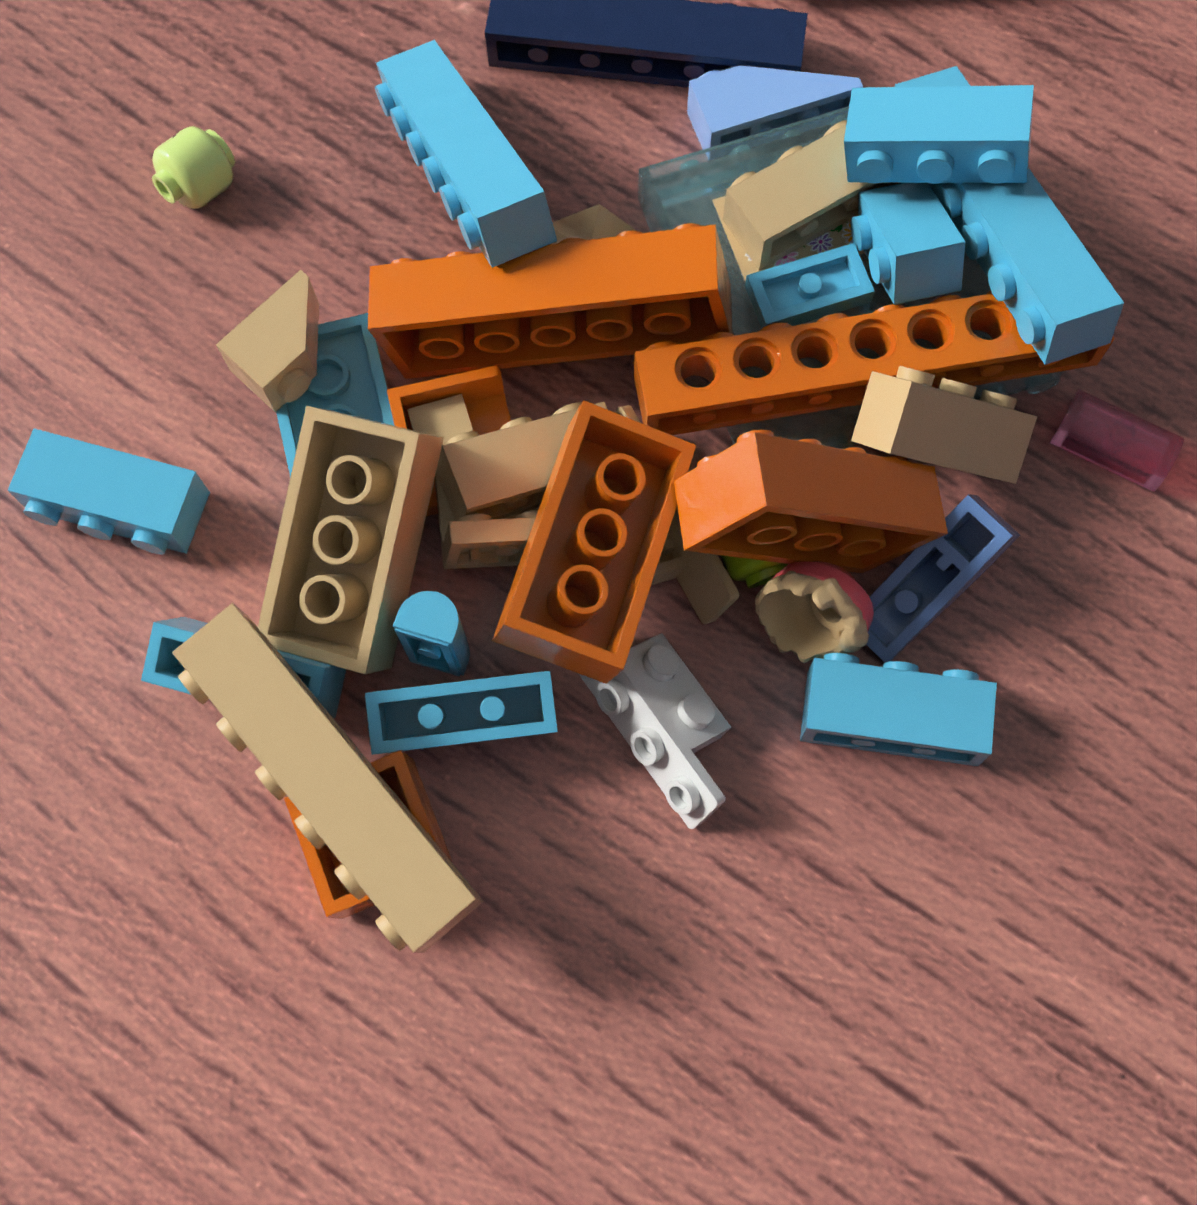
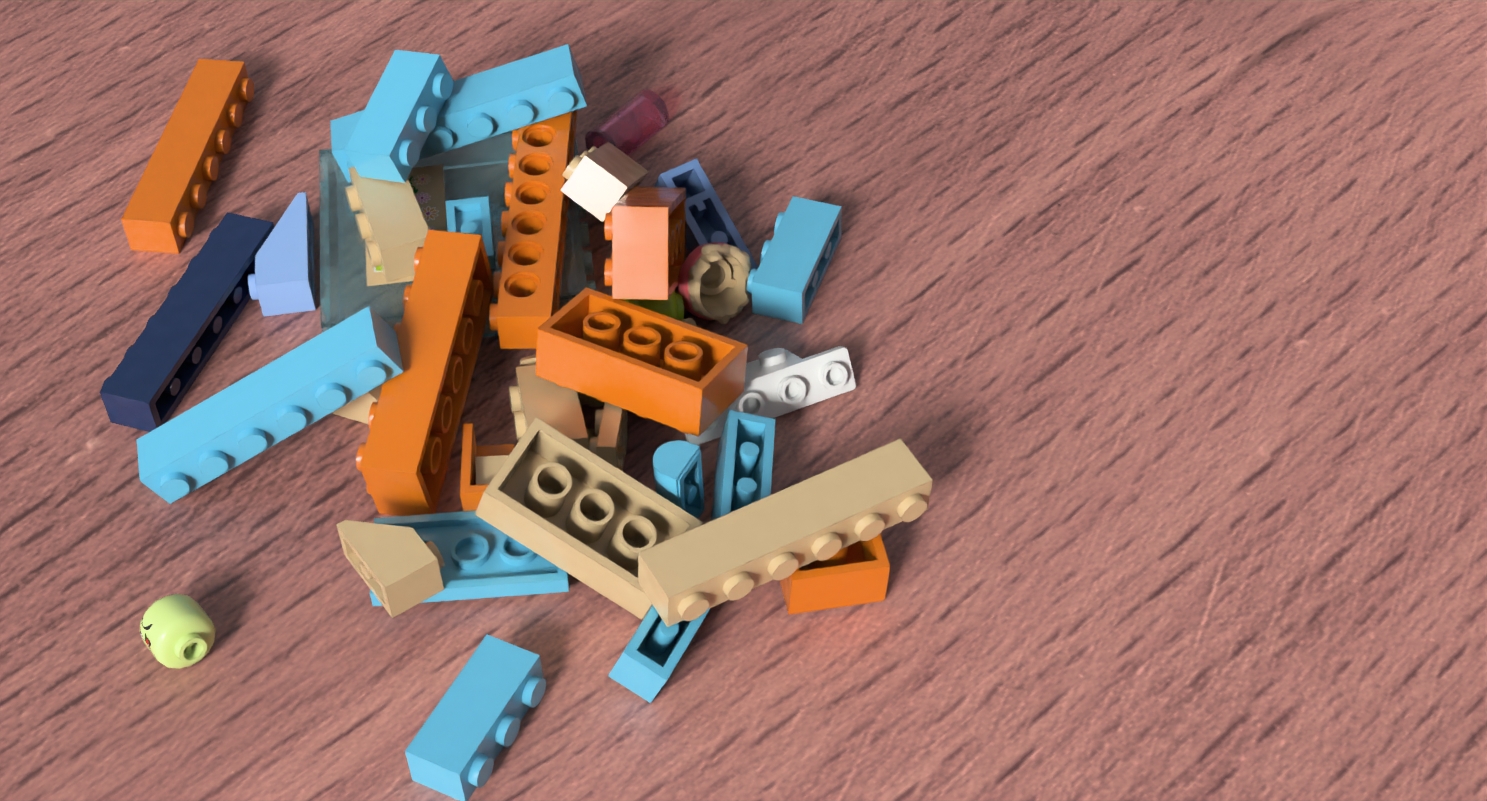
camera: 80 degrees left, 25 degrees down
(909, 241) = (460, 166): medium azure brick -> none

